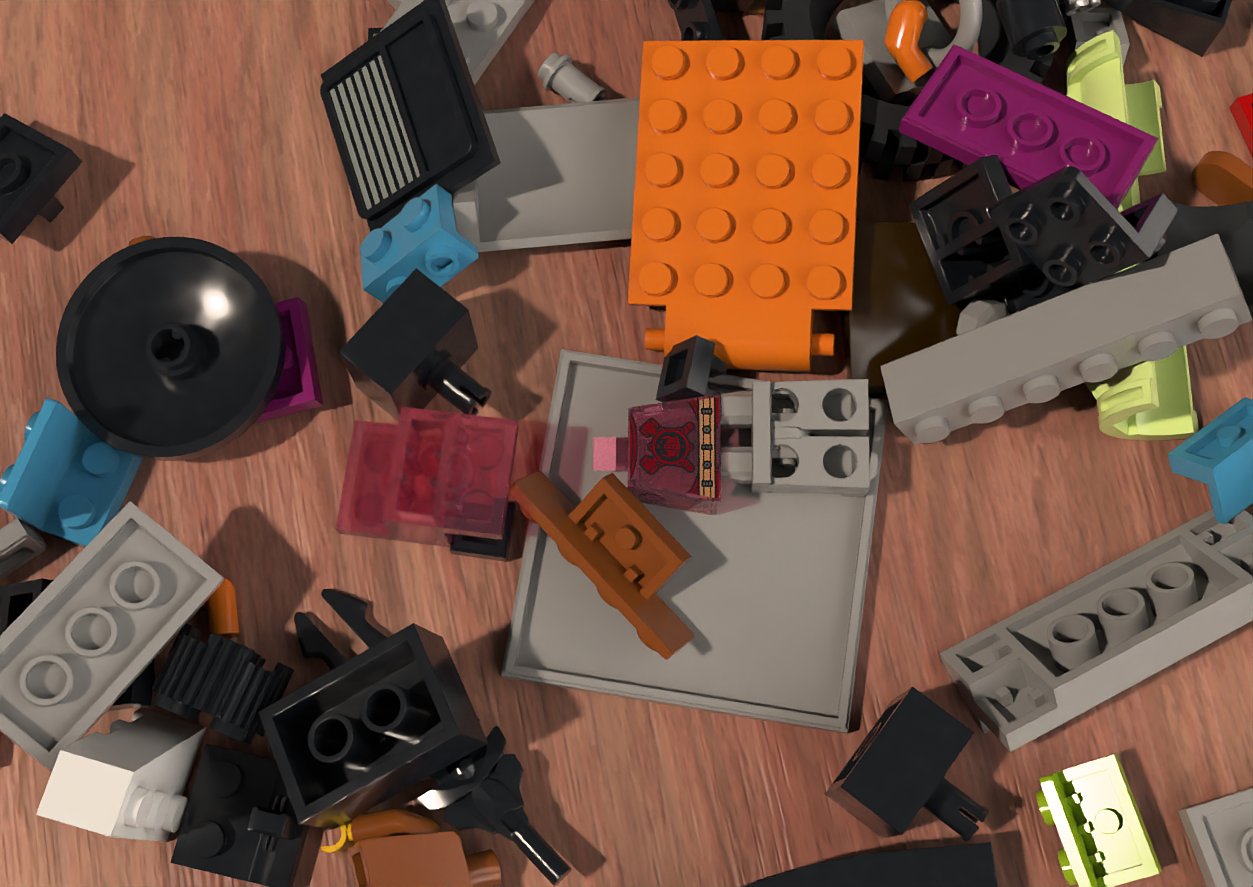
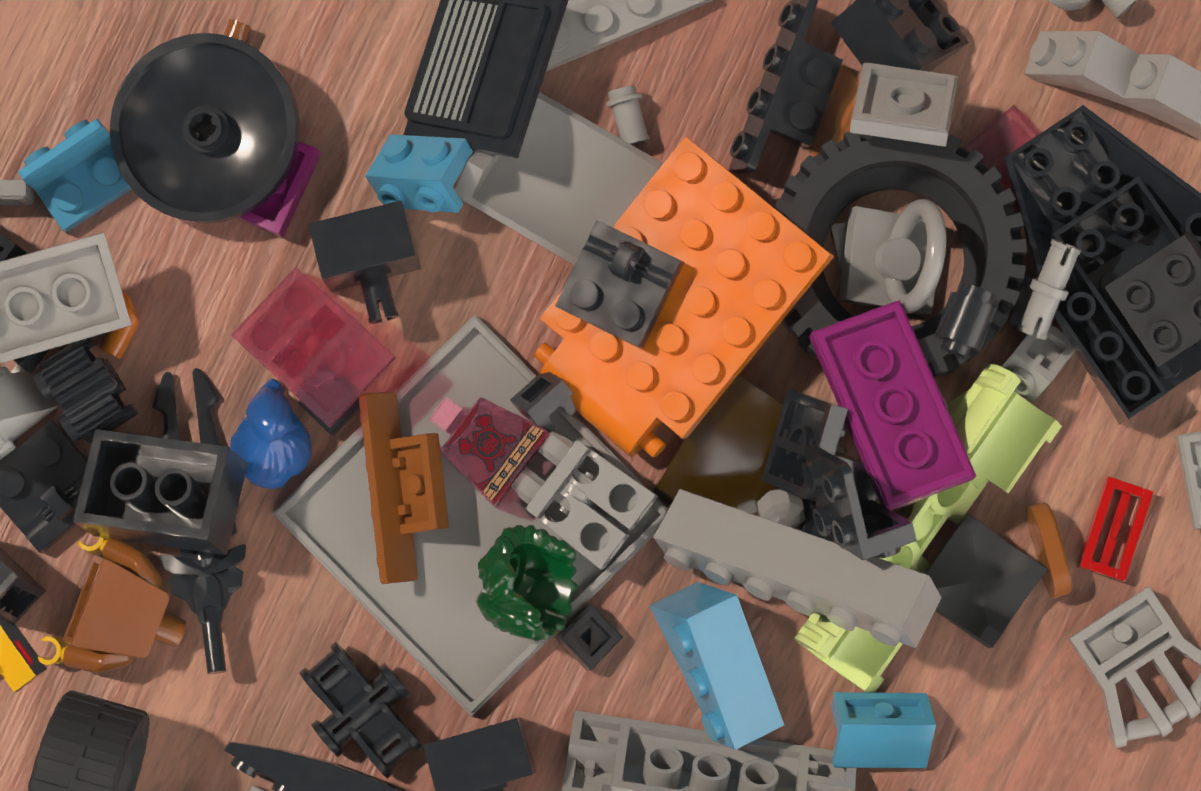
camera: 40 degrees right, 10 degrees up
(450, 601) = (271, 438): none -> blue hair
(684, 208) = (619, 284): none -> black hinge
(759, 812) = (372, 723): none -> black axle
(809, 554) = (527, 583): none -> dark green hair
(900, 570) = (589, 637): none -> black tile
(903, 38) = (879, 263): orange arm -> none
(1046, 499) = (719, 663): none -> dark azure wedge

